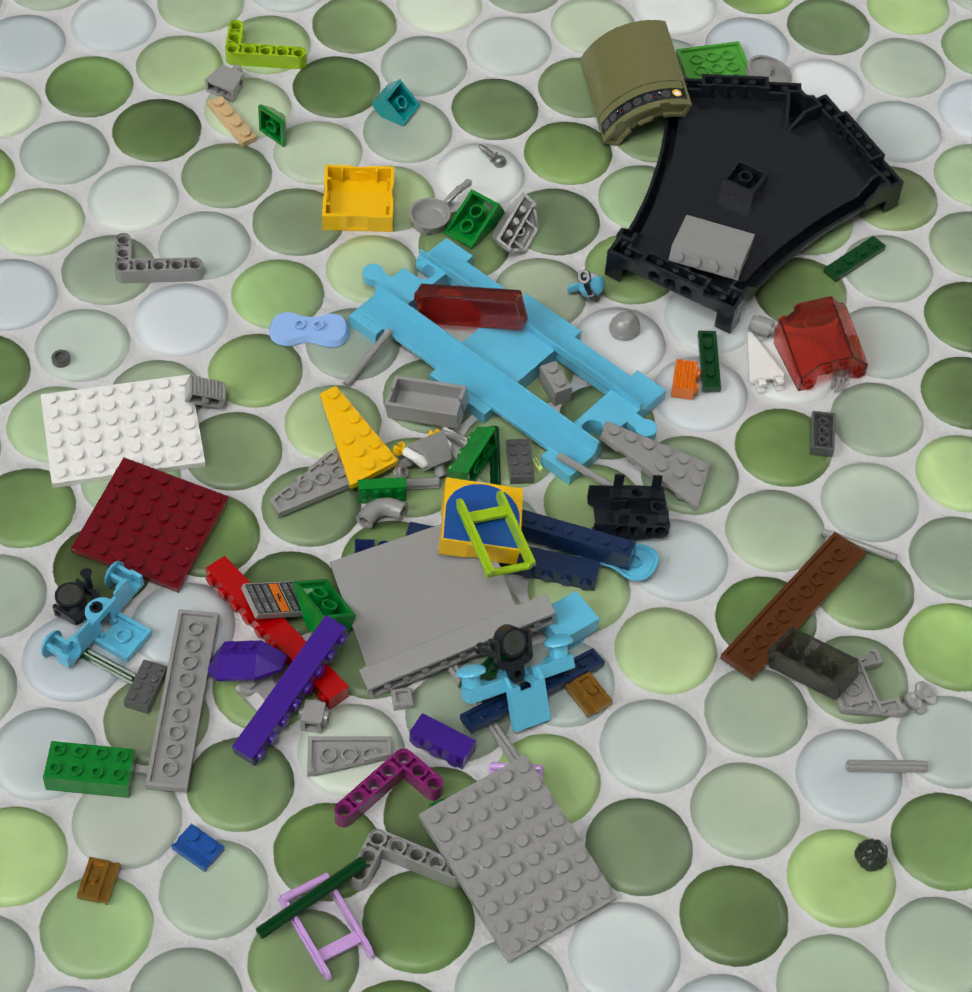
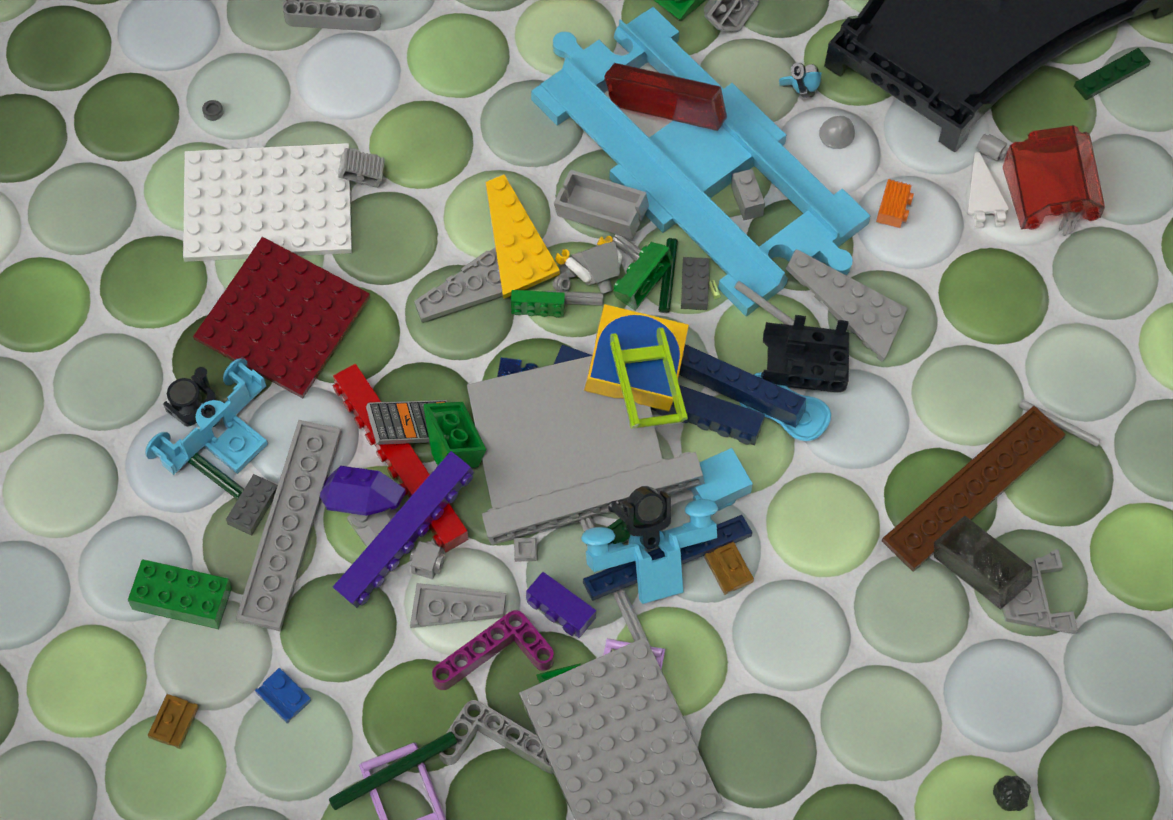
camera: 10 degrees right, 10 degrees up
(294, 329) = (502, 104): light blue plate -> none
(366, 359) = (545, 142): light grey bar -> none
(381, 508) = (534, 323): light grey cylinder -> none
(709, 361) = (925, 184): dark green plate -> none
(711, 247) = (946, 51): light grey brick -> none
(822, 433) = (1039, 285): dark grey piece -> none
(897, 766) = (1047, 690): light grey axle -> none
(922, 692) = (1101, 607): light grey piece -> none

